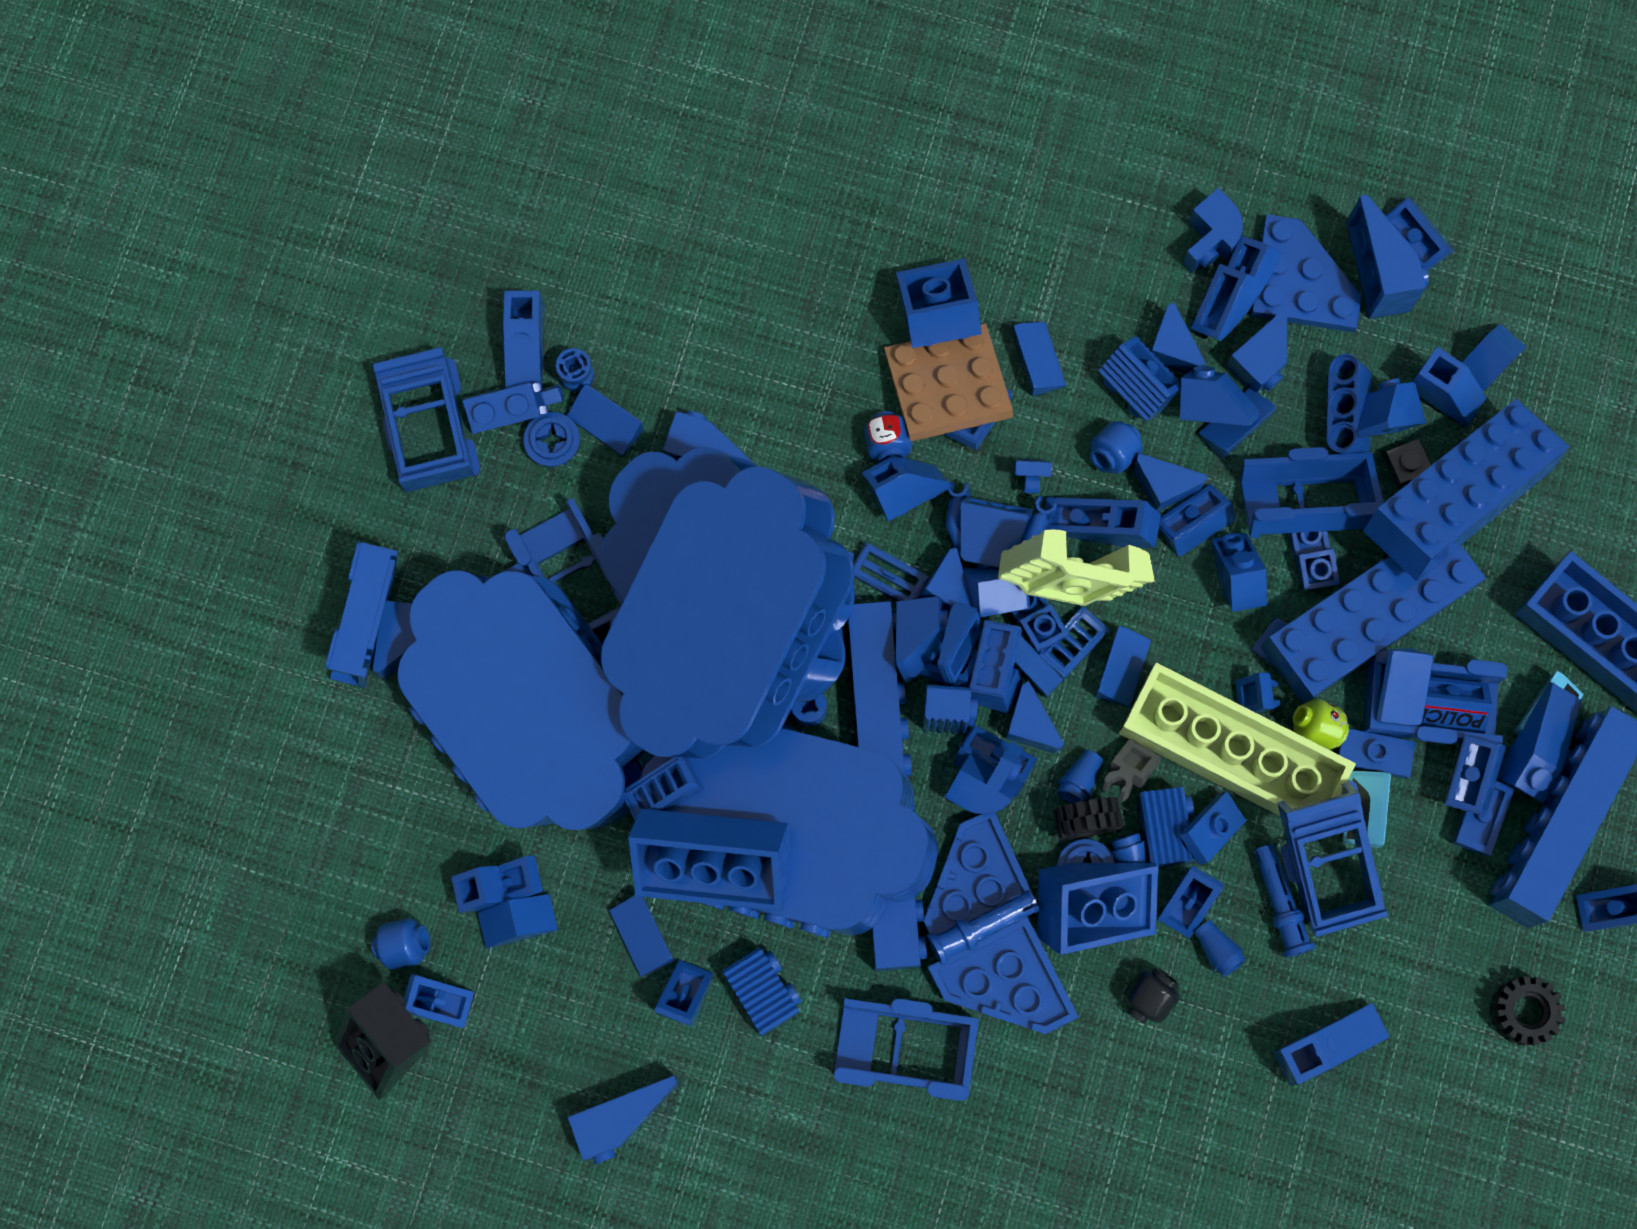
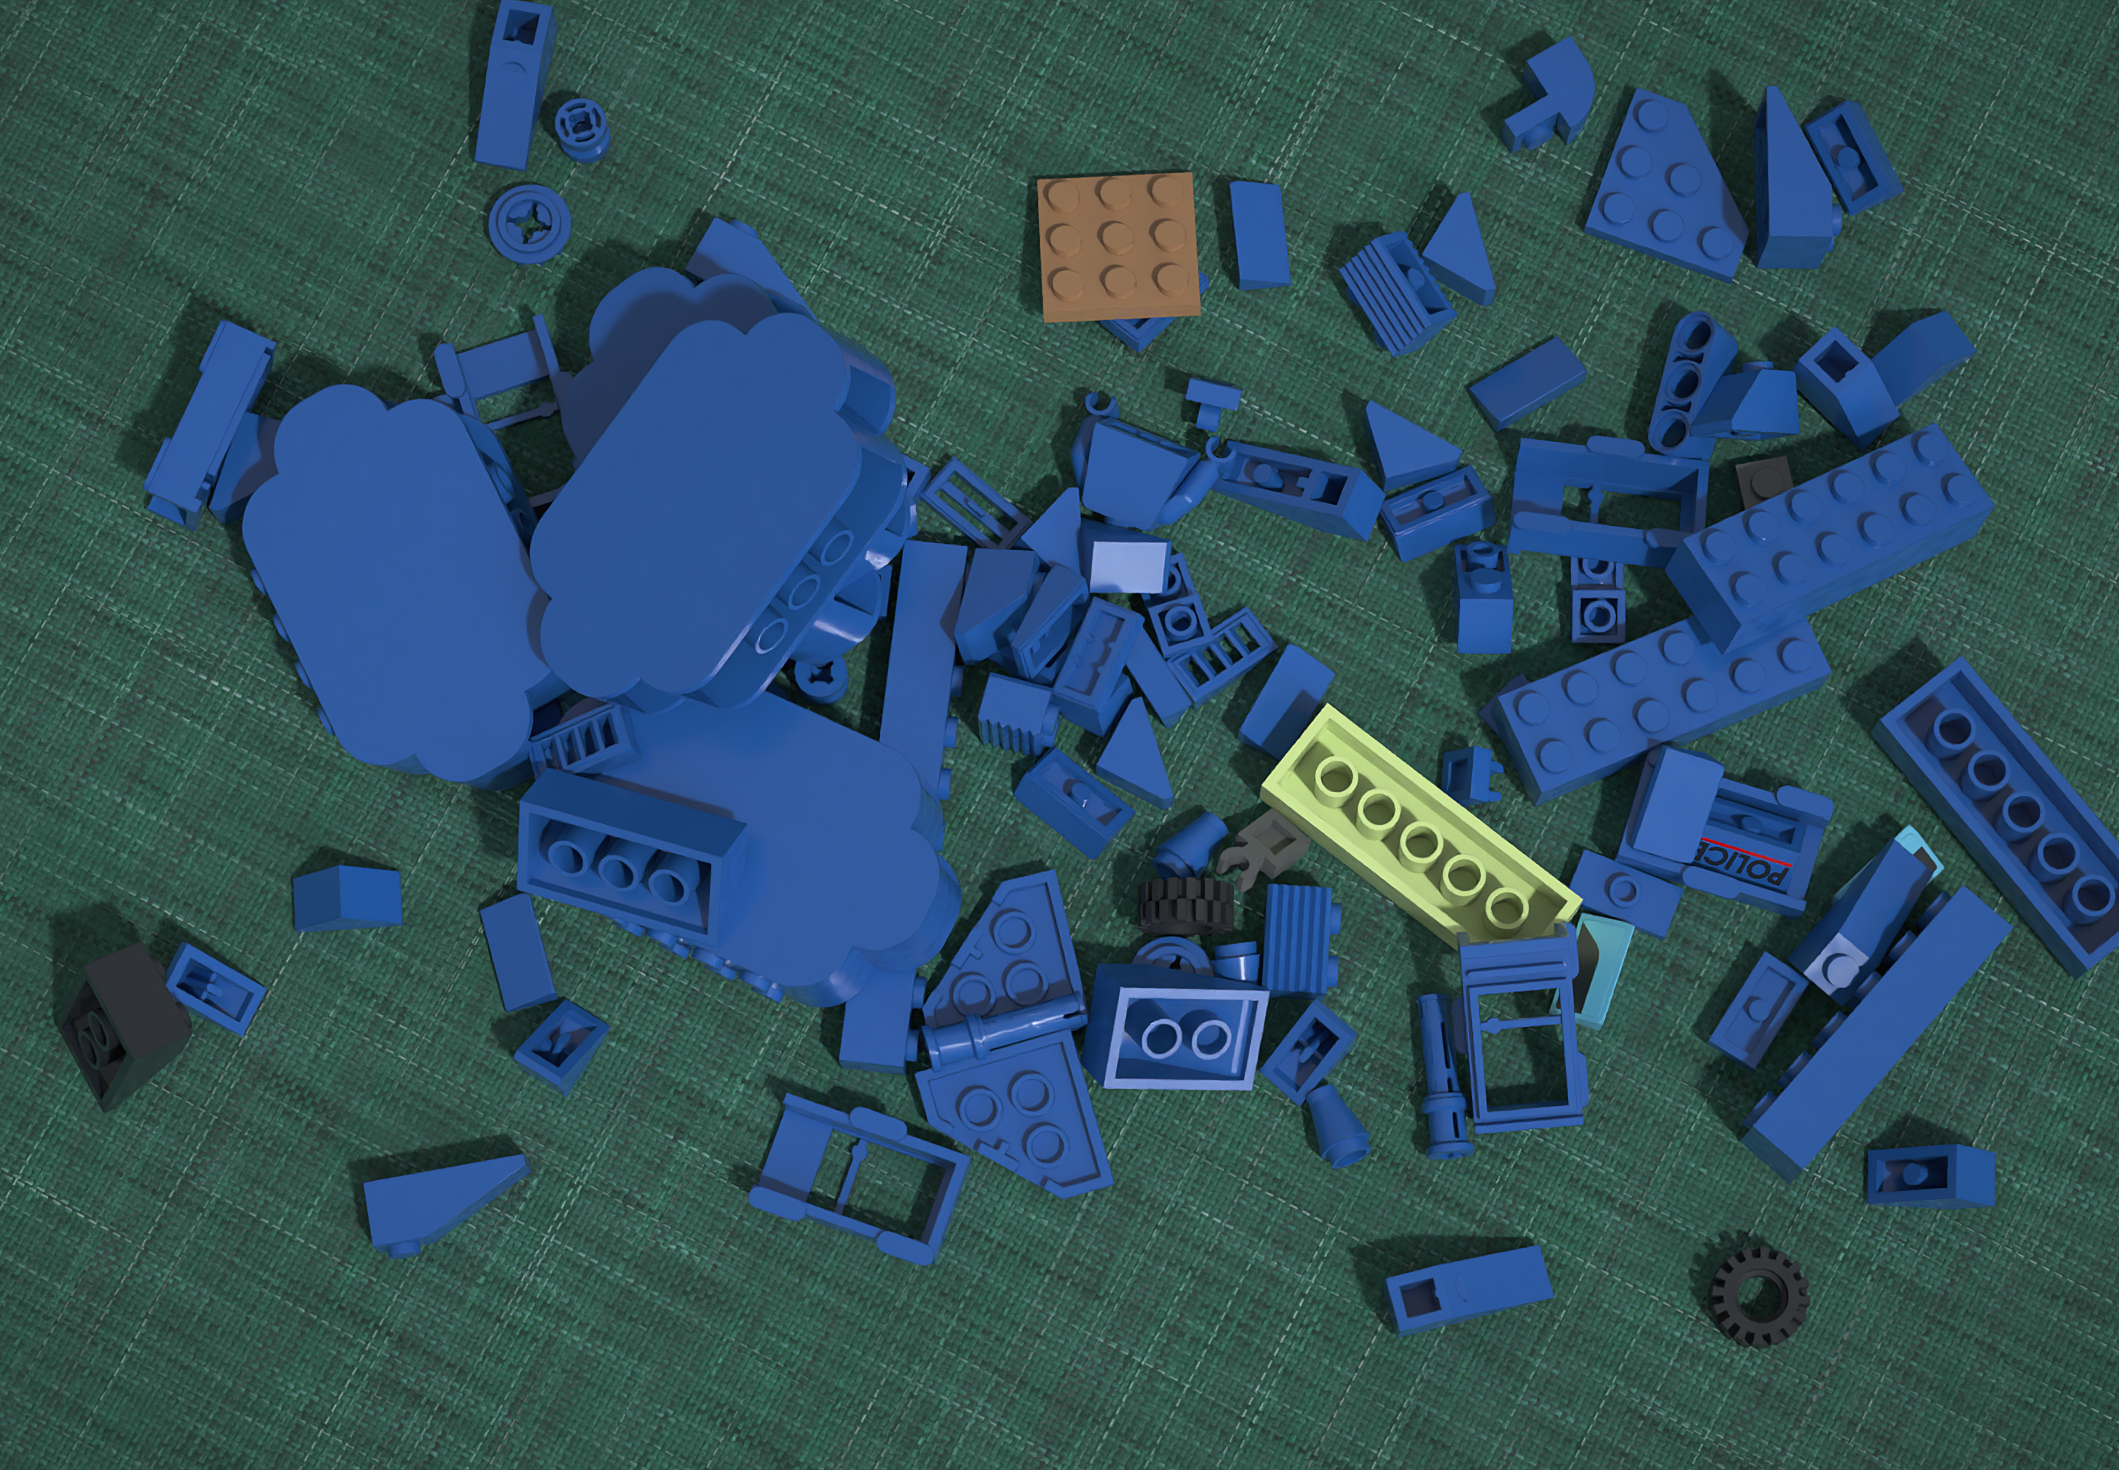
camera: 10 degrees right, 0 degrees up
(401, 943) = (176, 899): blue head -> none
(413, 373) = (346, 92): blue piece -> none
(492, 885) = (316, 841): blue brick -> none
(510, 405) = (479, 164): blue hinge -> none
(605, 420) = (612, 211): blue slope -> none
(762, 991) = (673, 1063): blue brick -> none
(887, 437) = (1013, 313): head -> none
(903, 484) = (1022, 383): blue slope -> none
(939, 303) = (1125, 130): blue brick -> none
(986, 788) = (1047, 836): blue brick -> none
(1045, 571) = (1187, 542): yellowish green plate -> none
(1115, 447) = (1341, 386): blue head -> none
(1152, 995) = (1225, 1173): black head -> none
(1213, 827) = (1362, 954): blue plate -> none
(1214, 399) = (1497, 342): blue slope -> none
(1236, 287) = (1566, 187): blue slope -> none
(1263, 356) = (1583, 293): blue slope -> none
(1321, 723) = (1550, 836): lime head -> none
(1475, 775) = (1754, 950): blue slope -> none

